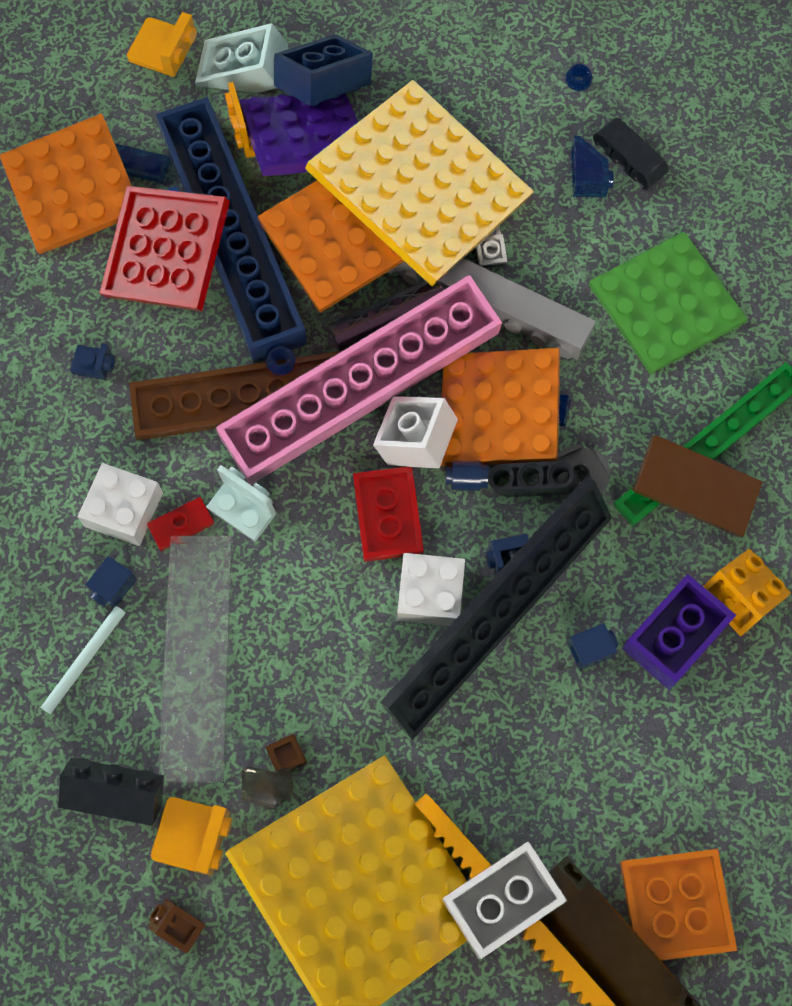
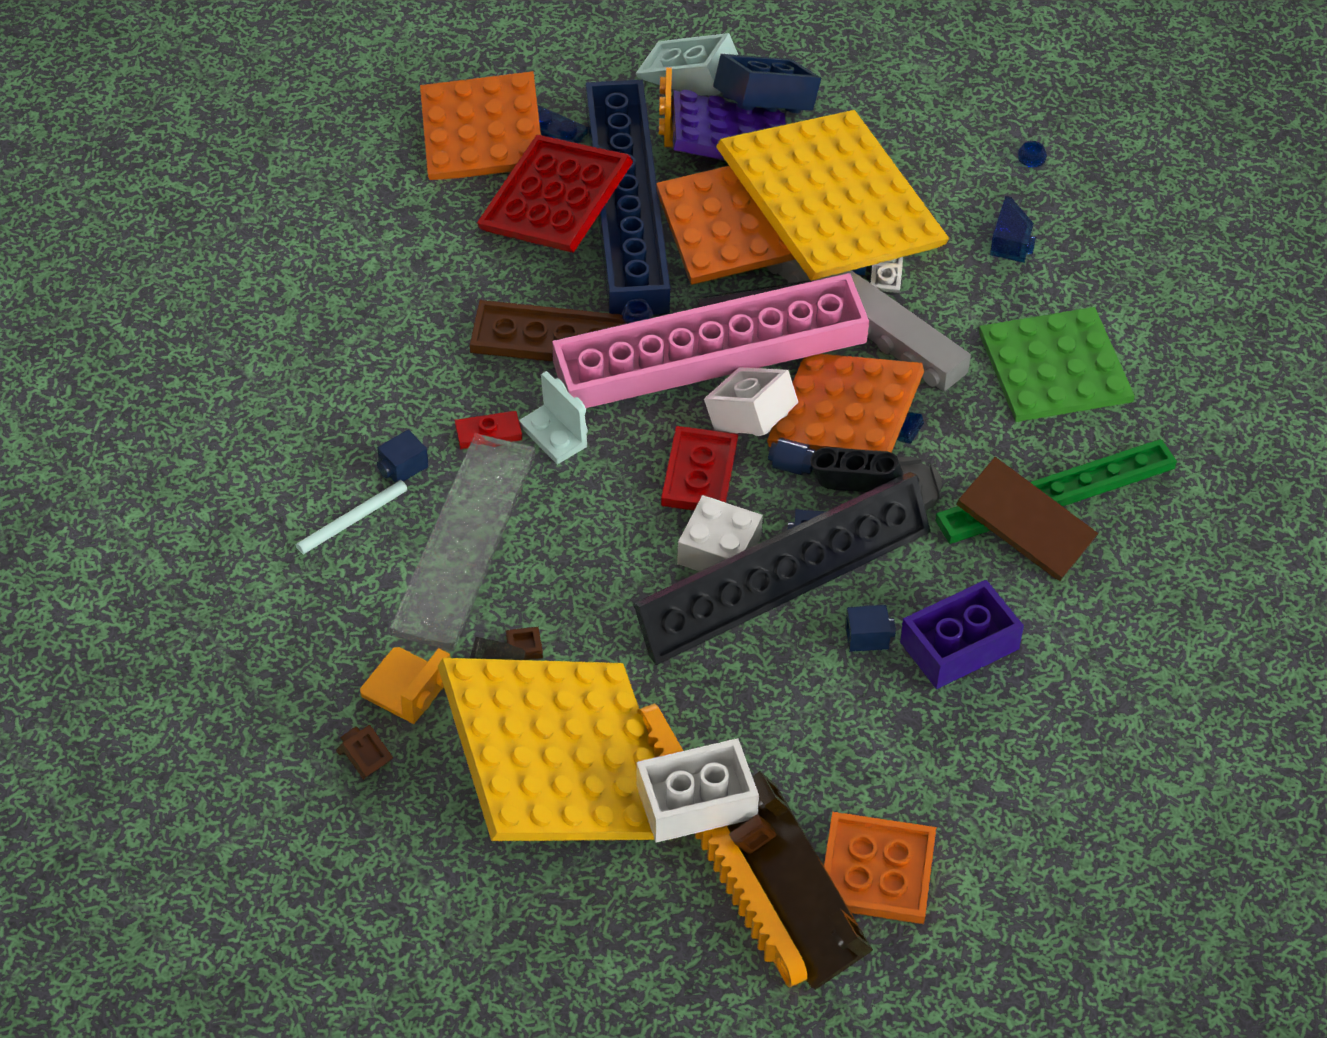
camera: 15 degrees right, 20 degrees down
(93, 361) = (449, 277): dark blue bracket -> none
(111, 791) = (342, 620): black brick -> none
(120, 504) = (435, 395): white brick -> none
(162, 44) = (615, 35): light orange bracket -> none
(563, 920) = (753, 834): none -> reddish brown tile
(631, 152) = (1063, 228): black beam -> none
(747, 590) = (1048, 619): light orange bracket -> none

